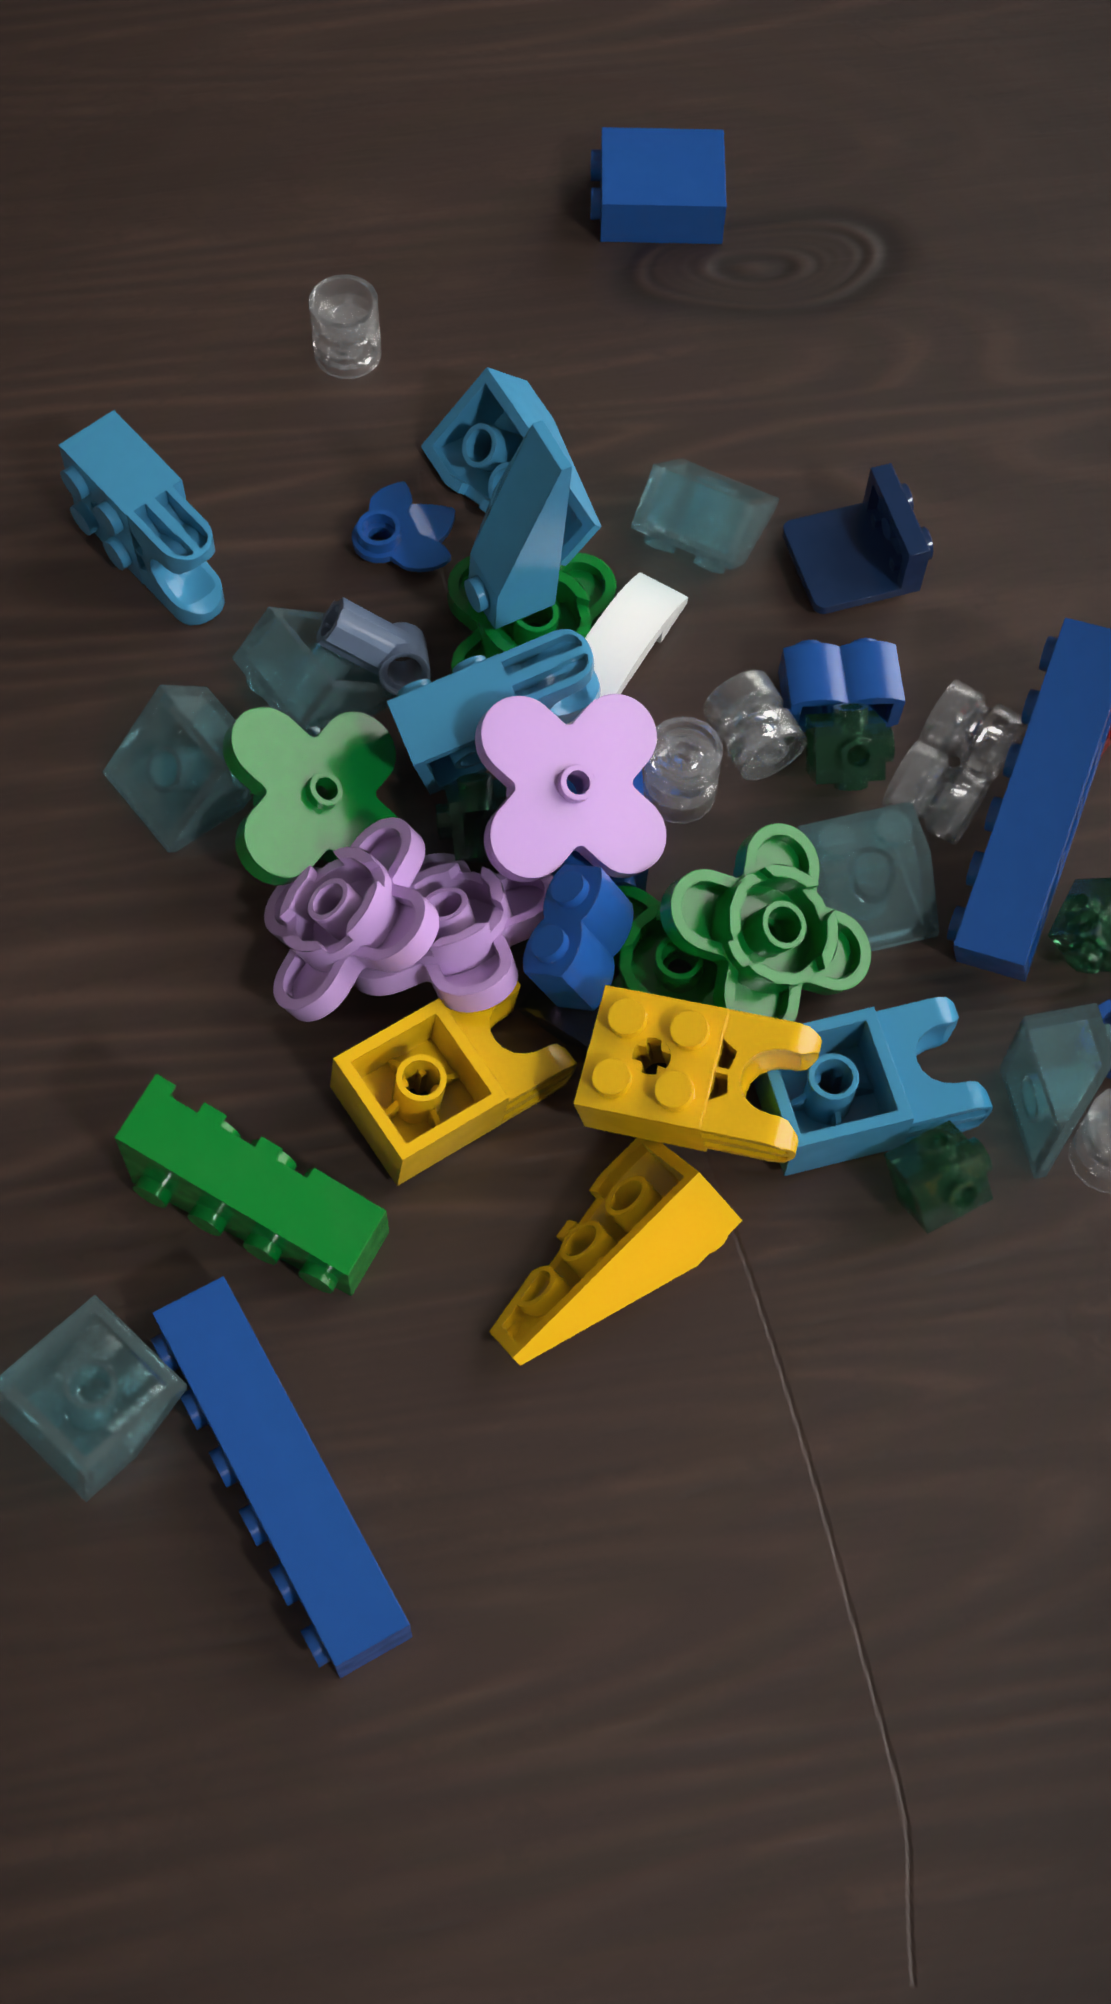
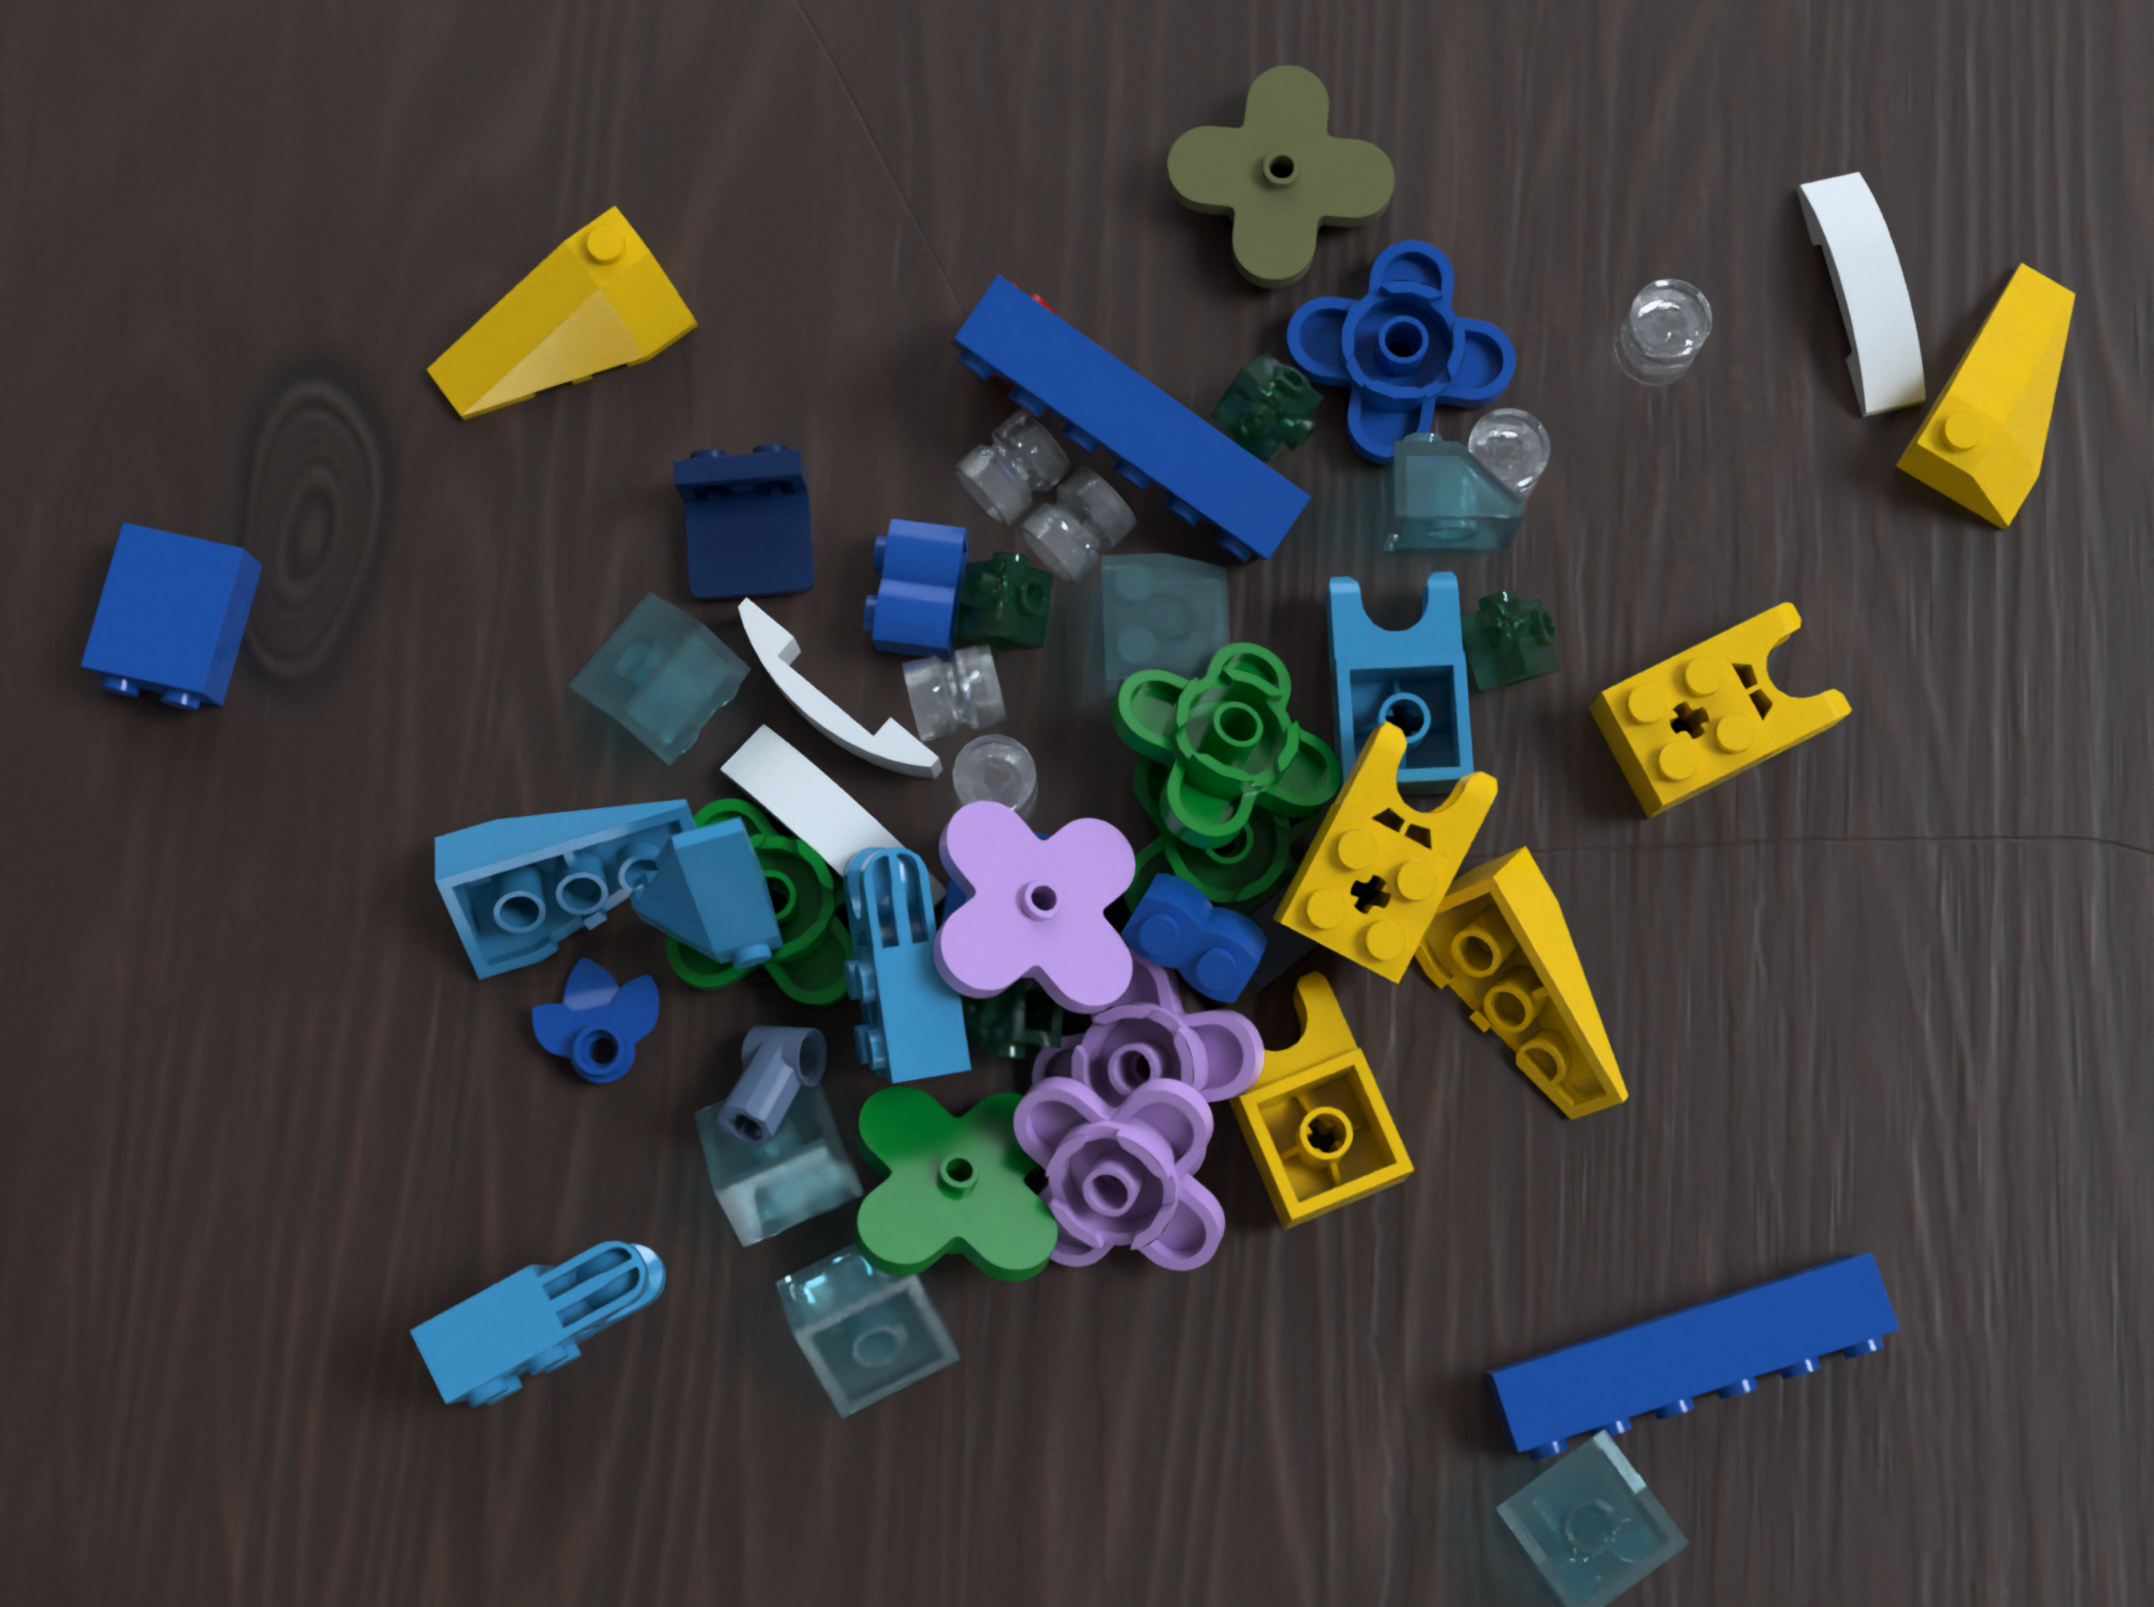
camera: 70 degrees left, 15 degrees up
(249, 1191) = (1399, 1328): green wedge -> none
(345, 326) = (300, 1034): clear wheel -> none
(746, 590) = (889, 748): none -> white slope
(929, 1402) = (1727, 703): none -> yellow brick
(1001, 396) = (576, 314): none -> yellow wedge

